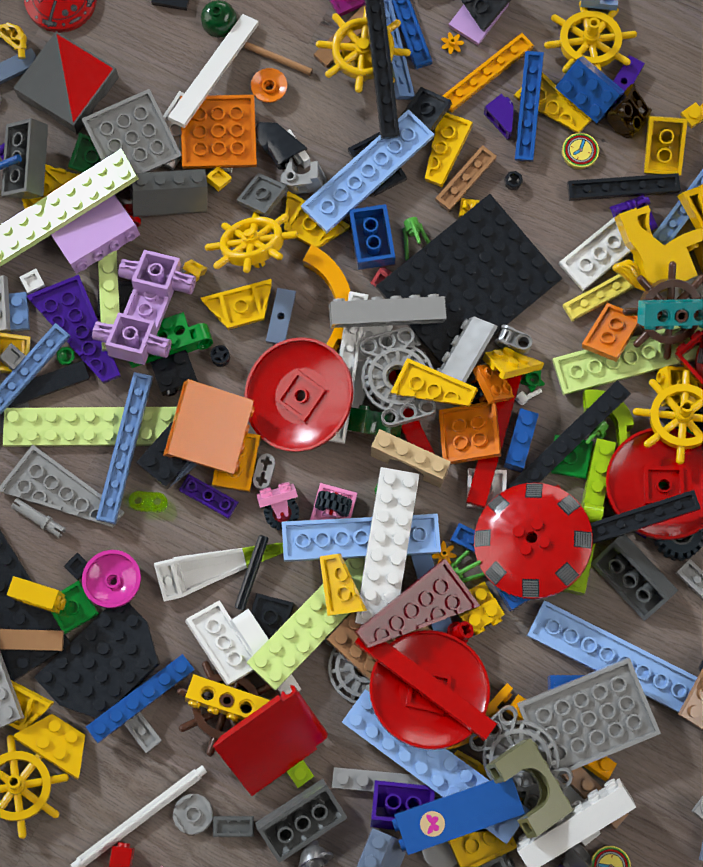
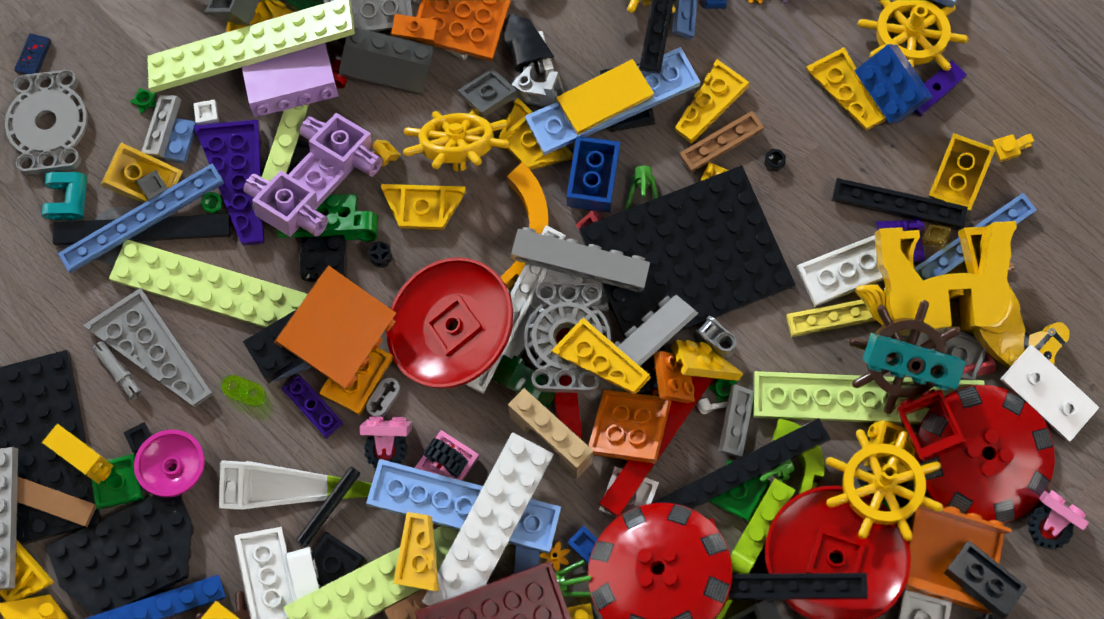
camera: 20 degrees right, 5 degrees down
(124, 448) = (237, 323): medium blue tile -> none
(184, 158) = (414, 28): none -> orange plate
(218, 178) = (445, 62): yellow tile -> none
(282, 307) = (467, 221): sand blue tile -> none
(361, 170) = (605, 96): none -> yellow tile
(428, 107) = (705, 52): black plate -> none
(488, 71) = (783, 34): light orange tile -> none
(500, 114) = (784, 83): dark purple slope -> none
(521, 440) = (686, 453): blue arch -> none
(529, 106) = (818, 83): blue plate -> none
(551, 402) = (736, 421): none -> light grey plate
(580, 151) = (862, 149): tile -> none
(610, 333) = (830, 363): orange plate -> none
(629, 113) = (931, 123): dark brown slope -> none
(661, 204) = (937, 236): none -> clear yellow tile

